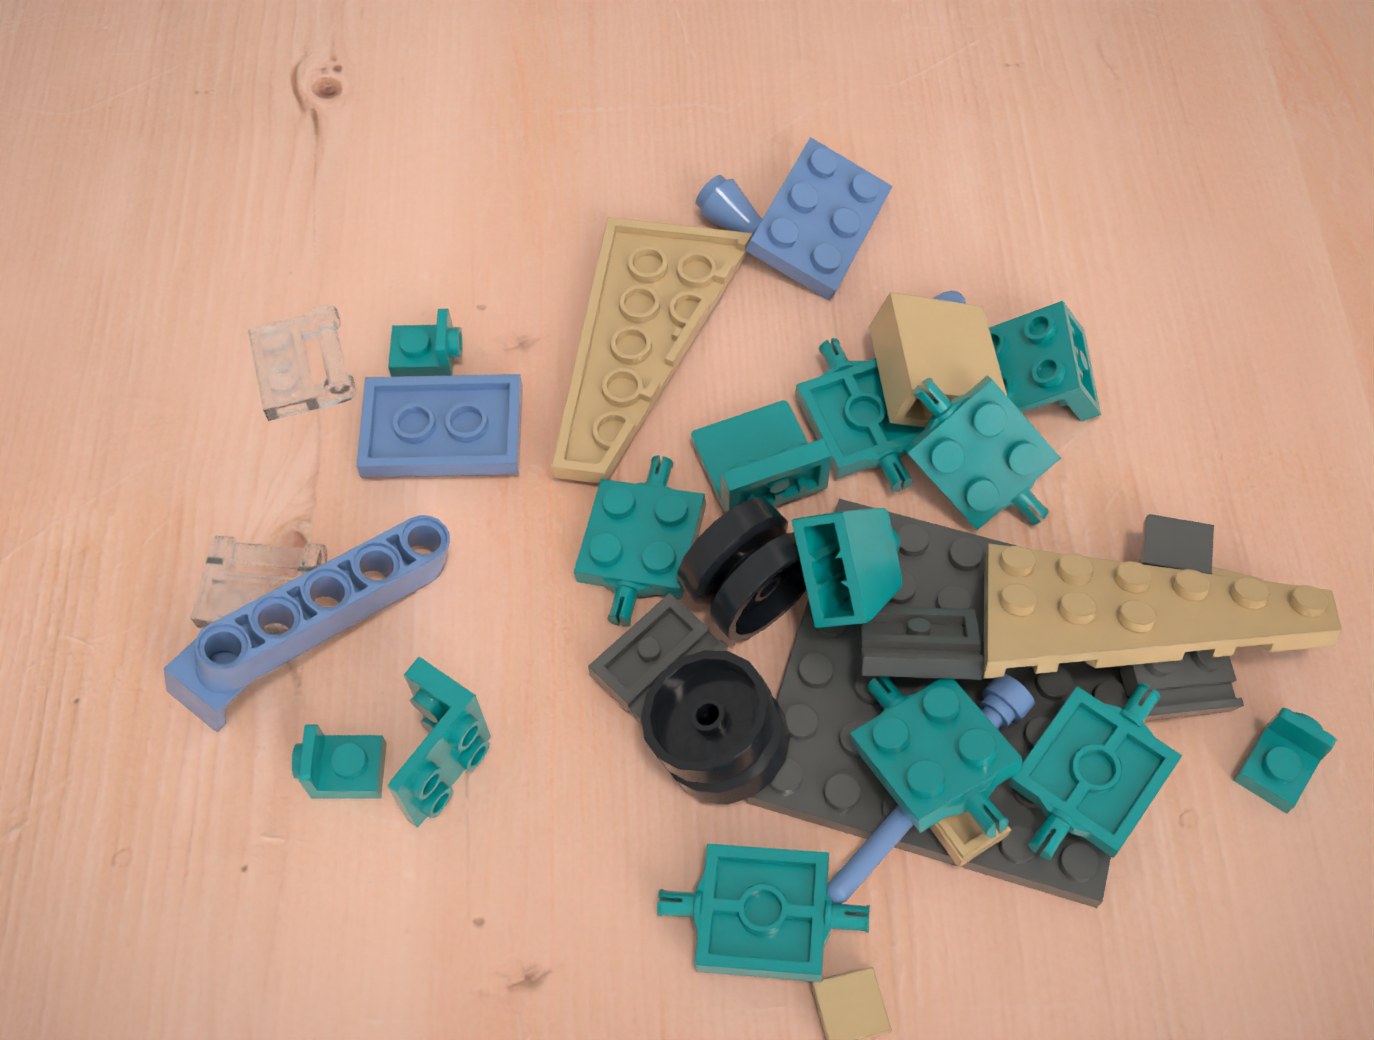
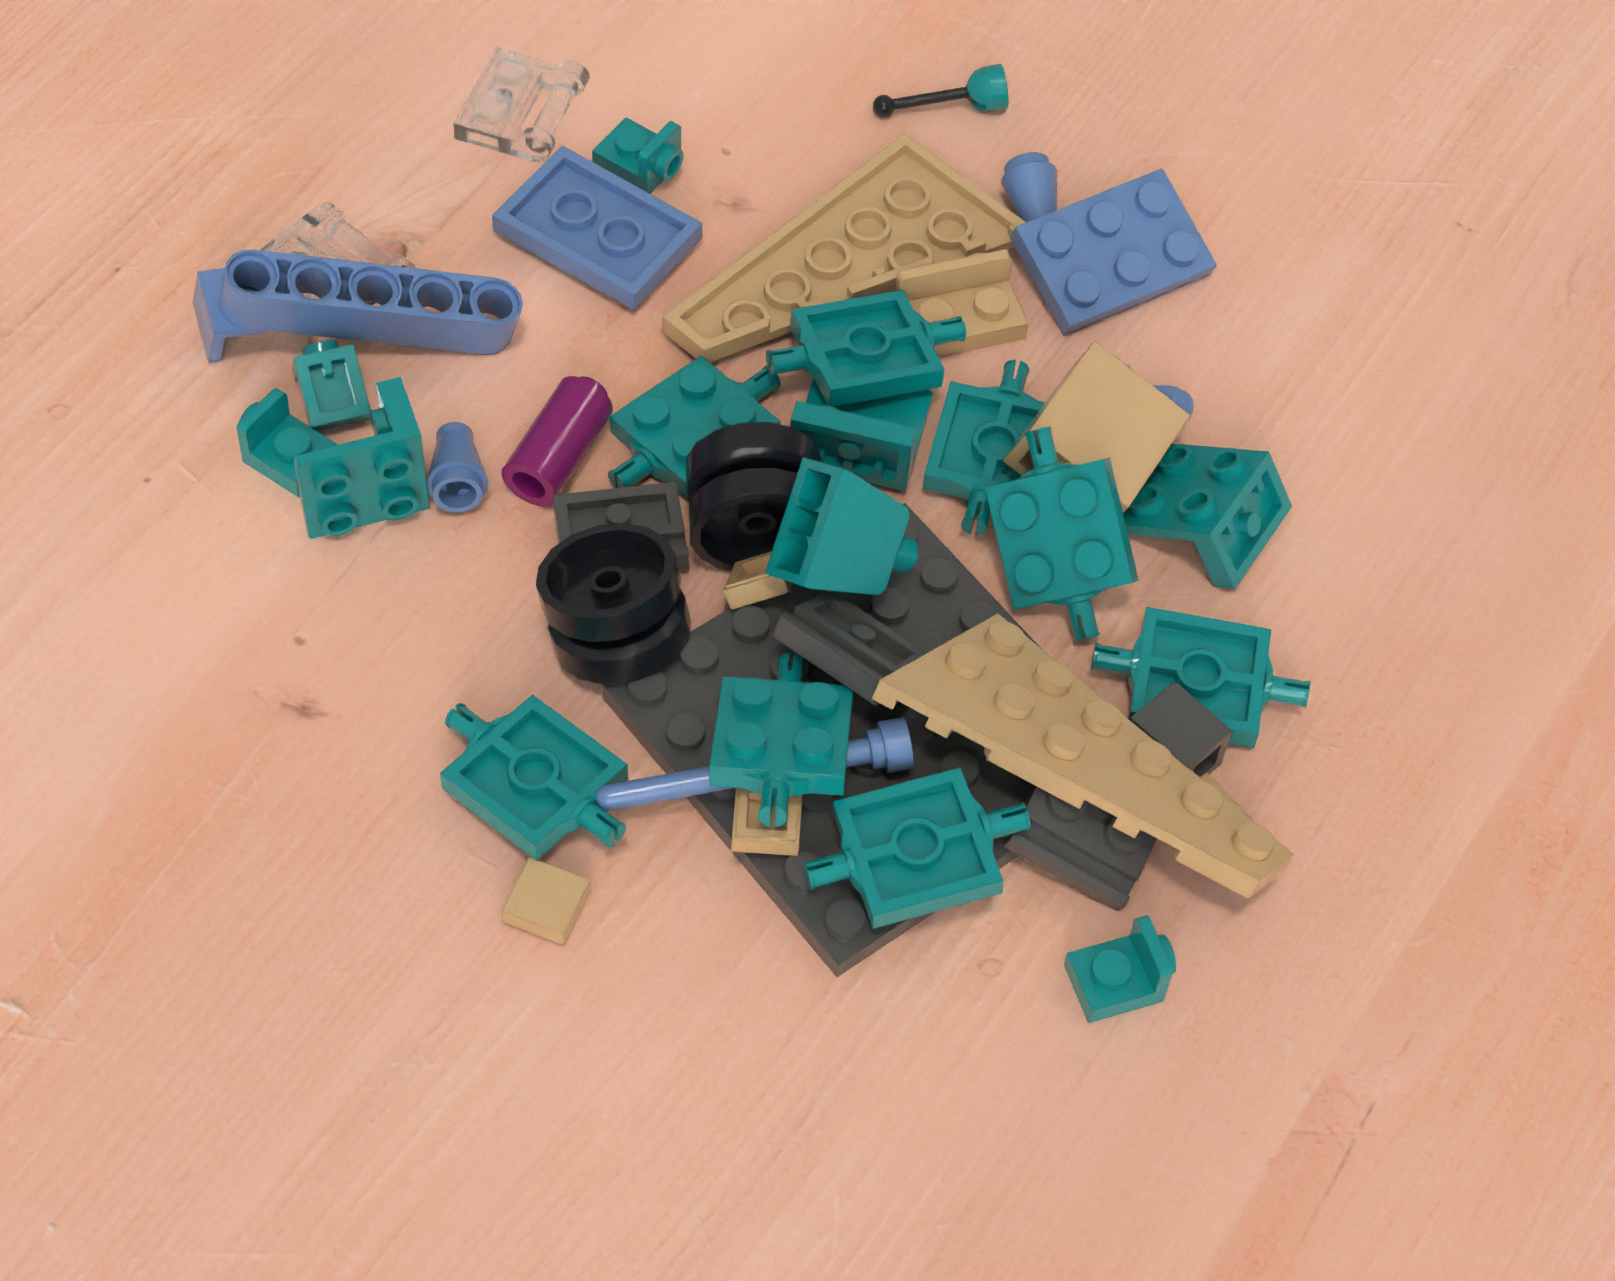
camera: 30 degrees right, 5 degrees down
(339, 689) = (331, 385): none -> teal bracket
(500, 696) = (456, 472): none -> medium blue cone
(553, 617) = (557, 440): none -> magenta brick
(631, 151) = (984, 89): none -> hinge
(720, 397) = (866, 348): none -> teal plate
(748, 325) = (968, 288): none -> tan bracket
(792, 629) = (750, 583): none -> tan tile
(1138, 481) = (1213, 660): none -> teal plate

